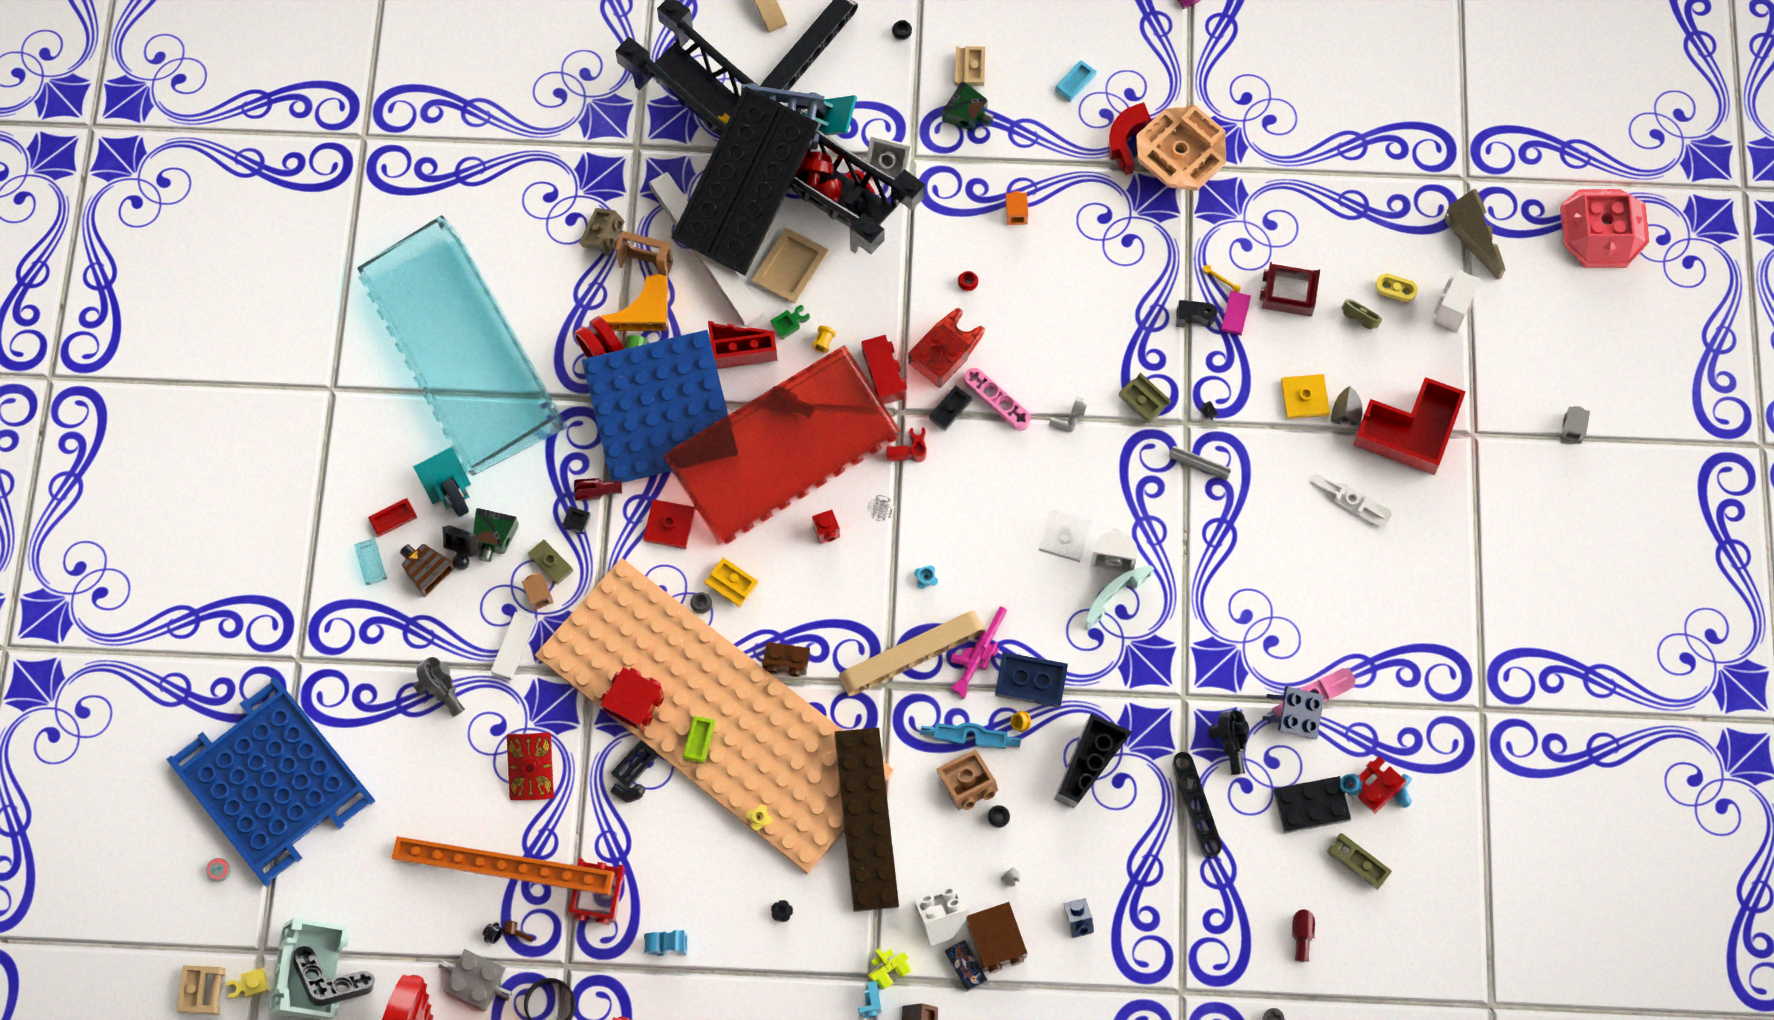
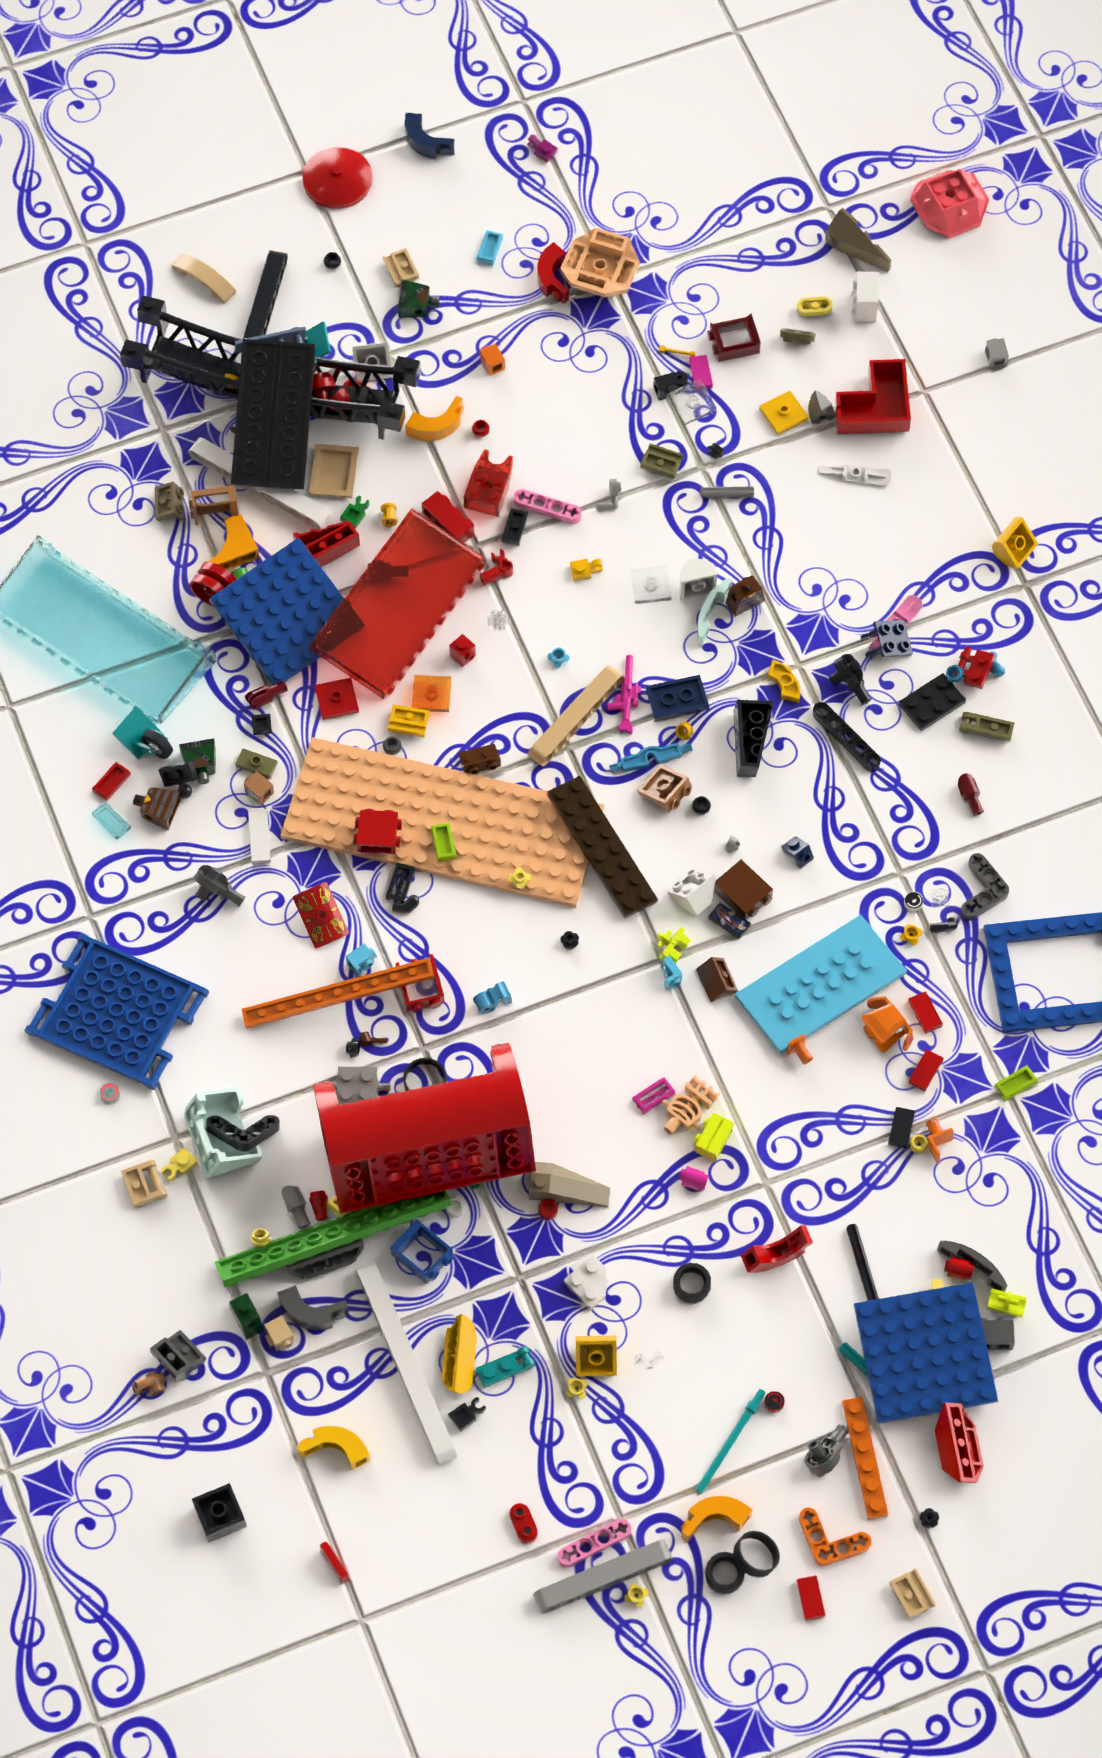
camera: 25 degrees left, 5 degrees down
(549, 835) = (360, 959): none -> medium azure brick
(771, 561) = (432, 693): none -> clear orange plate
(920, 261) = (438, 427): none -> light orange arch
(1000, 486) = (582, 568): none -> yellow plate
(1161, 593) = (744, 595): none -> reddish brown torso
(1161, 710) = (785, 680): none -> yellow tile
(1210, 344) = (692, 402): none -> clear plate
(1491, 658) = (1014, 543): none -> yellow brick

